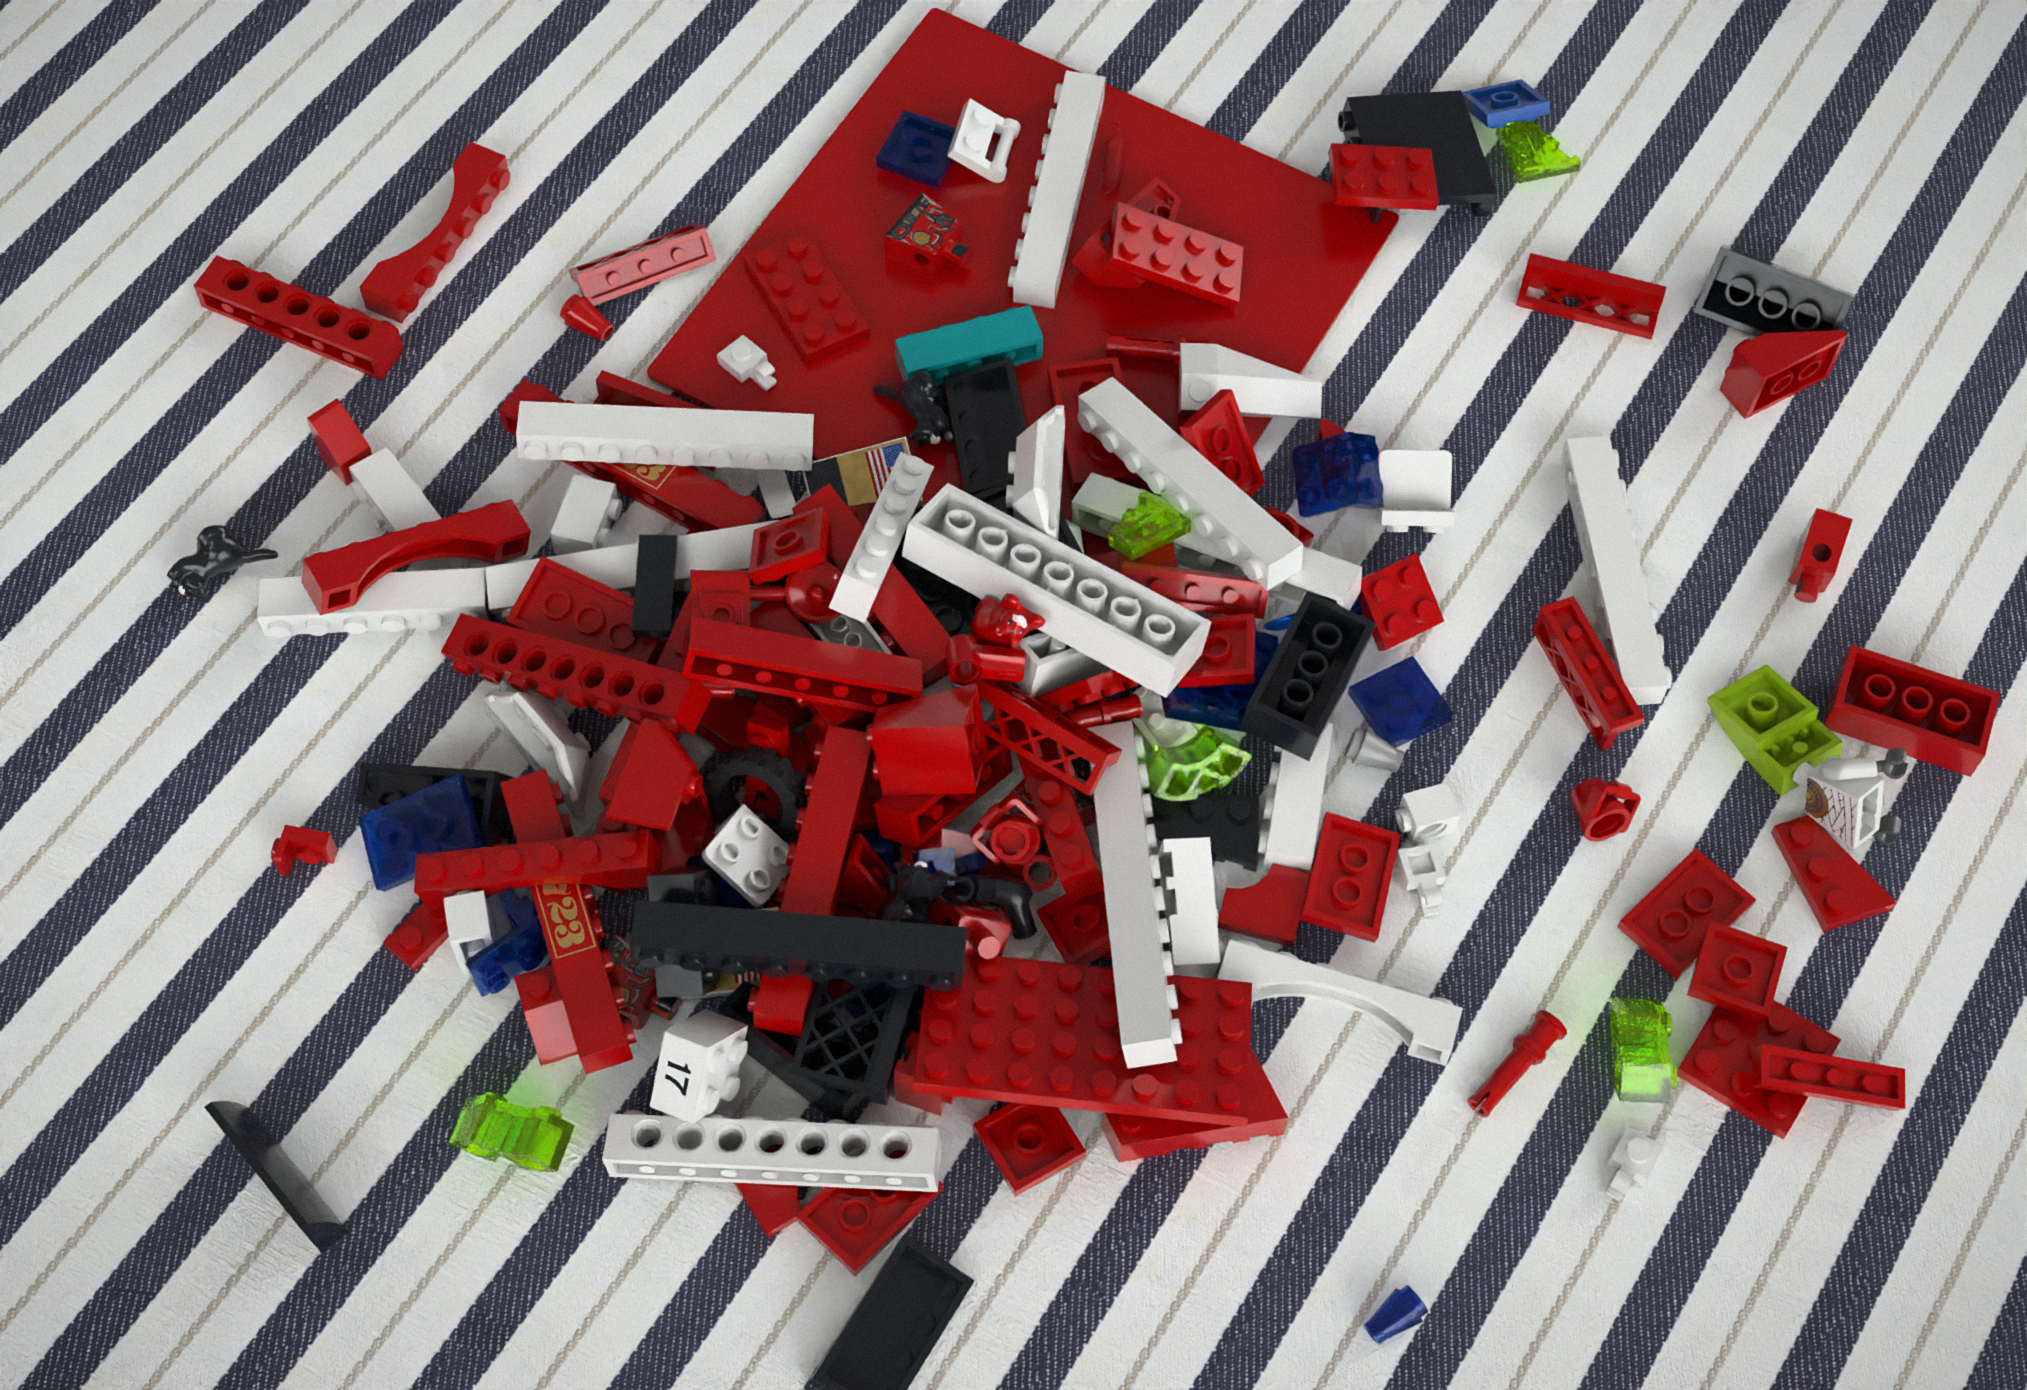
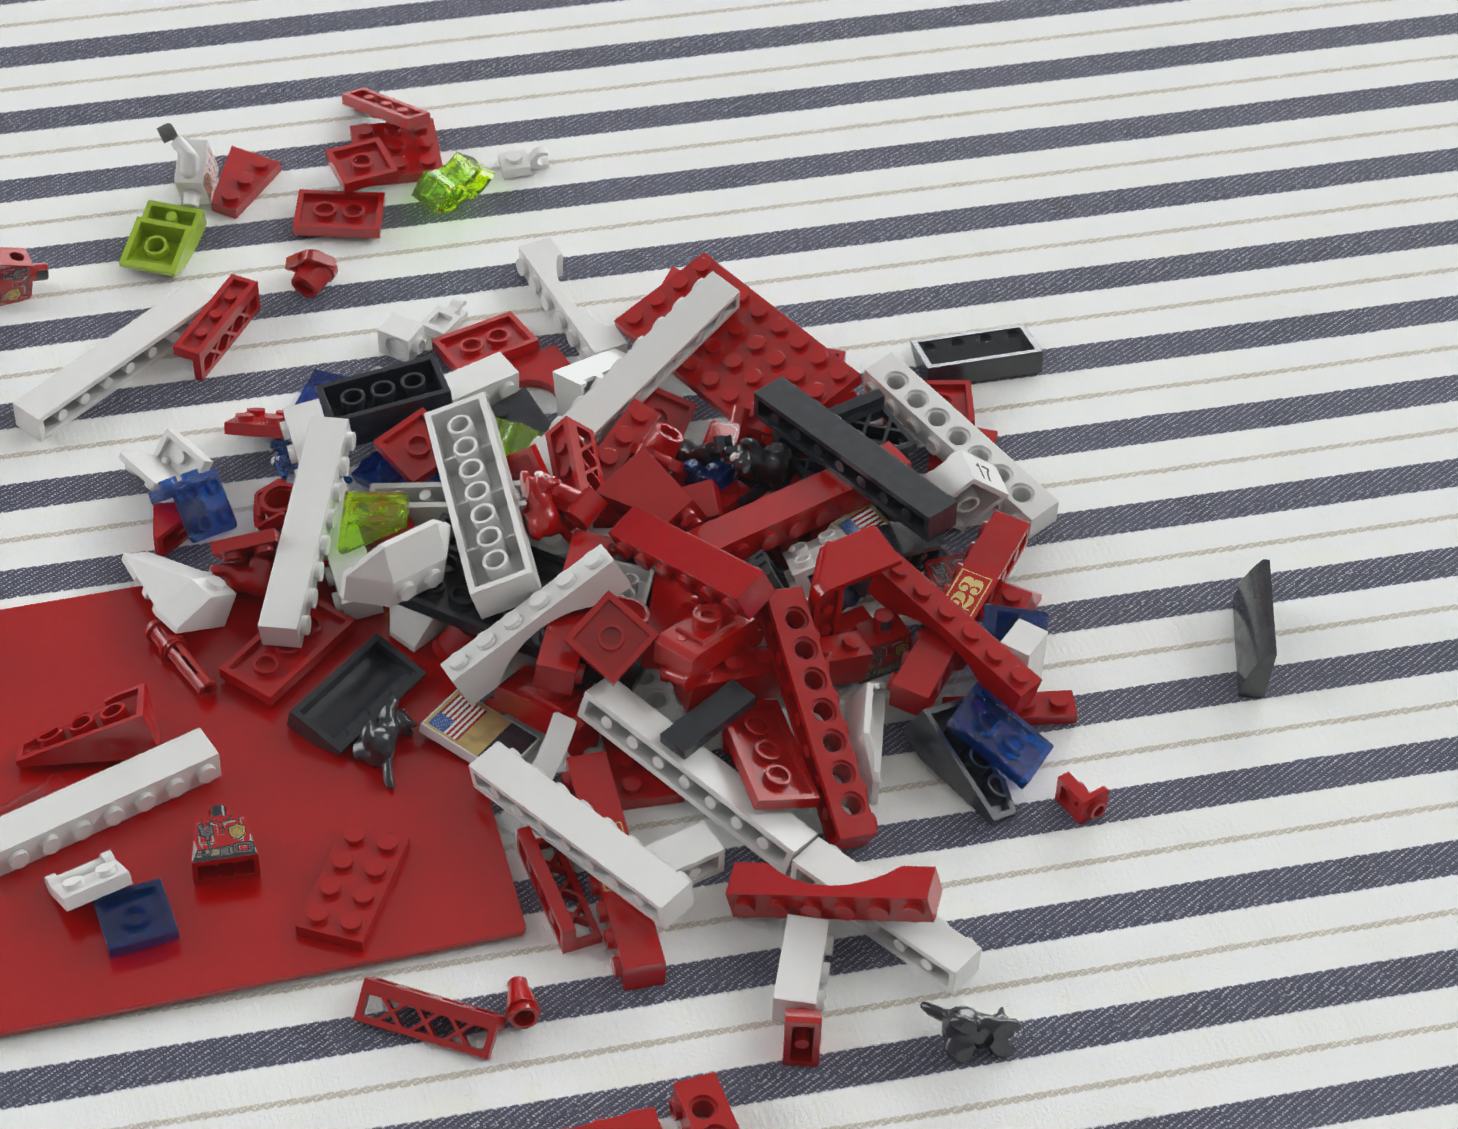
camera: 135 degrees left, 15 degrees down
(523, 1135) = (1096, 562): clear neon green brick -> none
(747, 360) = (452, 872): white plate -> none
(971, 344) = (301, 751): teal brick -> none
(1175, 255) = (93, 686): plate -> none
(1201, 589) = (380, 476): red plate -> none
(1396, 1314) = (718, 191): clear blue cone -> none
(1527, 1051) = (506, 225): red pin -> none
(1912, 710) = (89, 189): red brick -> none

